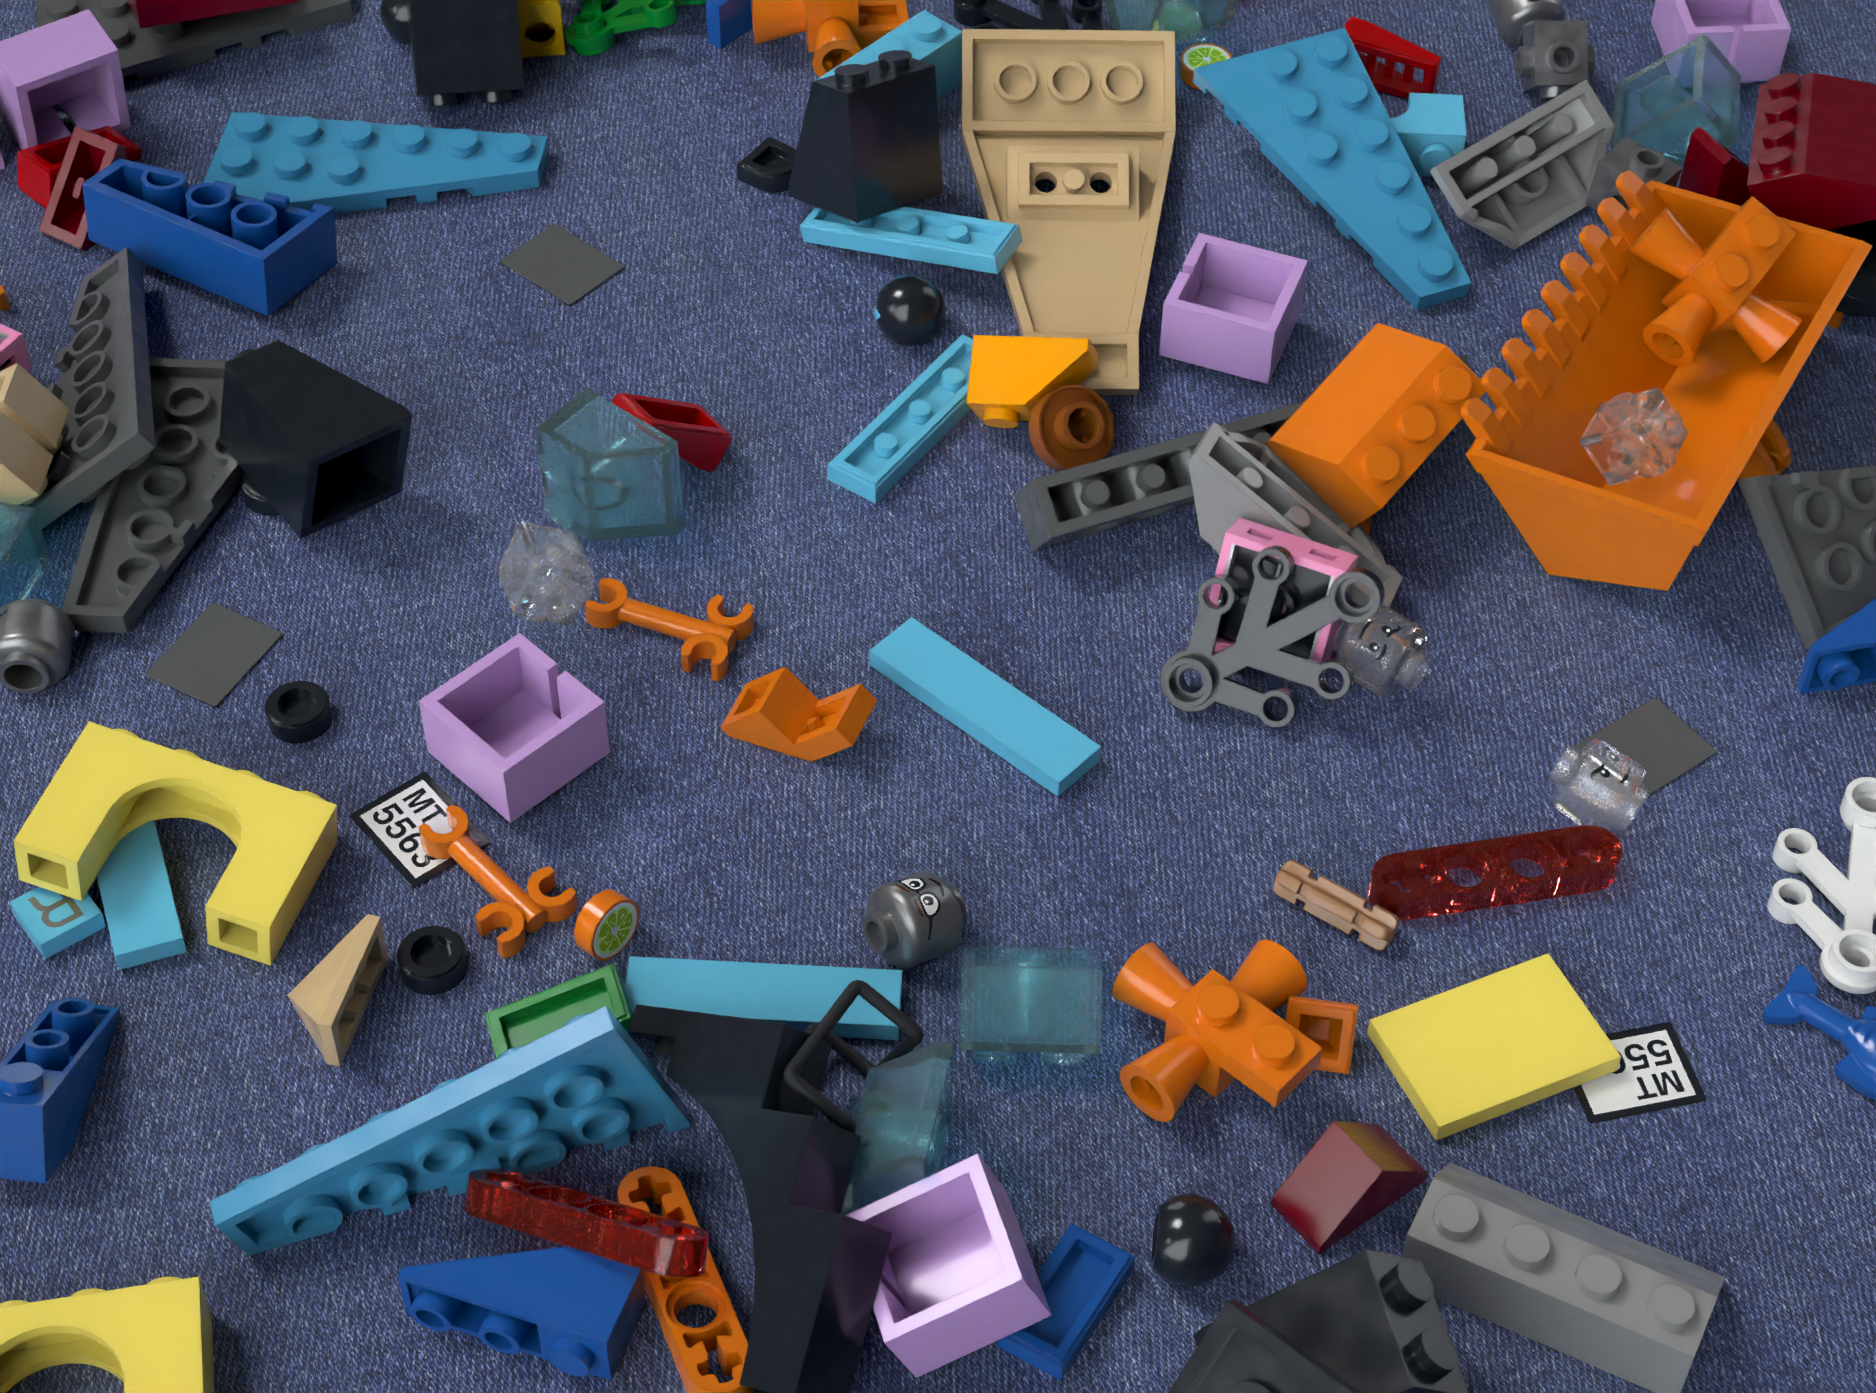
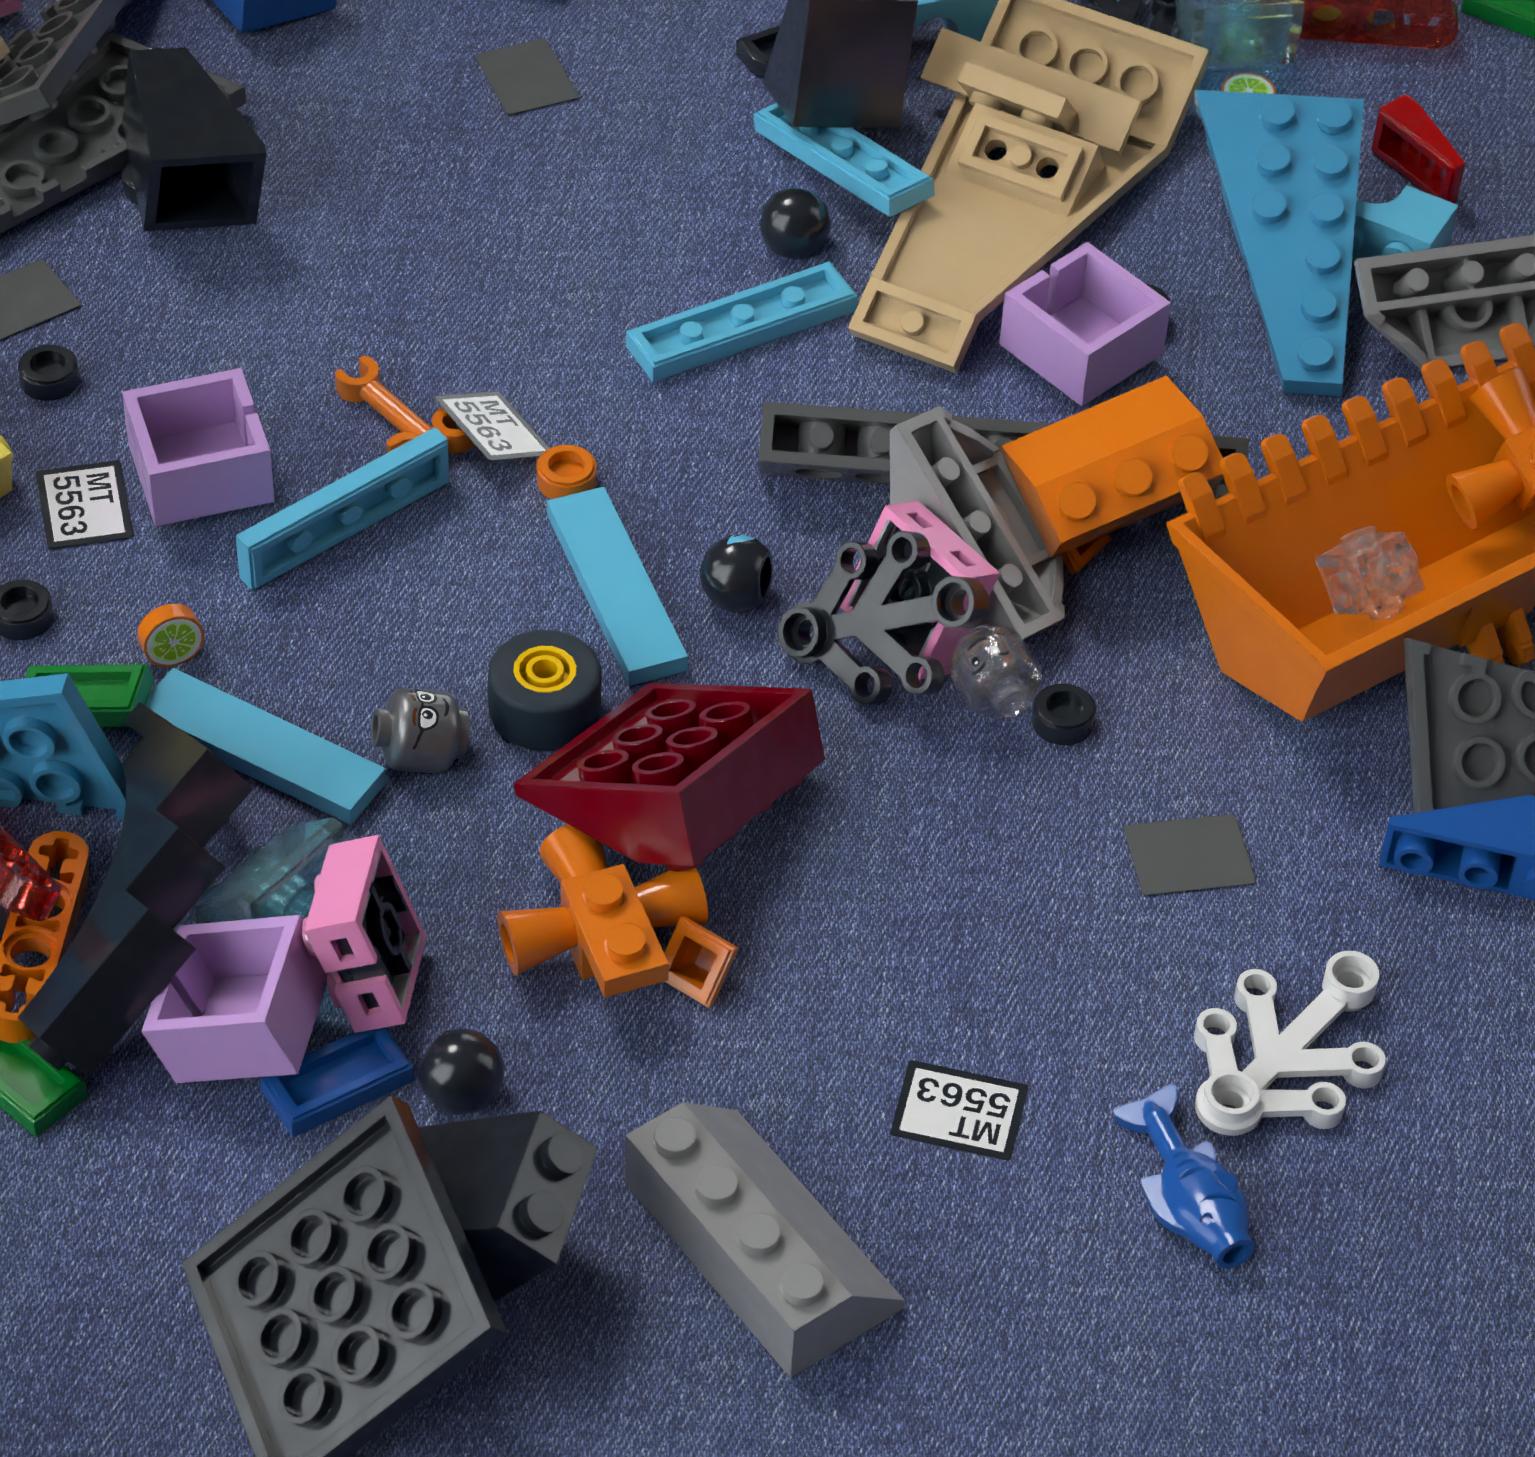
camera: 25 degrees right, 0 degrees up
(514, 906) = (116, 597): orange bar -> none
(545, 574) = (312, 332): clear brick -> none
(608, 472) = (414, 264): clear light blue slope -> none
(686, 735) = (342, 508): none -> medium azure tile
(698, 434) = (502, 248): red slope -> none
(767, 598) = (493, 425): none -> sticker
(790, 719) = (444, 531): orange slope -> none
(823, 1032) = (276, 784): black piece -> none
(862, 618) = (565, 471): none -> orange tile
(998, 832) = (544, 689): none -> black wheel
(1015, 371) = (843, 315): light orange slope -> none
(1025, 1146) = (365, 934): none -> bright pink piece
(1030, 1002) = (466, 833): clear light blue slope -> none
(1040, 119) = (1031, 91): none -> tan bracket
(1071, 427) = (859, 374): dark orange plate -> none
(1092, 650) = (737, 573): none -> black piece
(1186, 856) = (679, 768): none -> dark red slope
(1336, 905) = (797, 867): medium nougat axle -> none
(1345, 1182) = (633, 1082): dark red slope -> none
(1455, 666) = (1063, 714): none -> black tile
(1492, 1046) = (848, 1035): light yellow tile -> none
(1499, 882) = (963, 889): clear red beam -> none
(1598, 786) = (1103, 863): clear head -> none

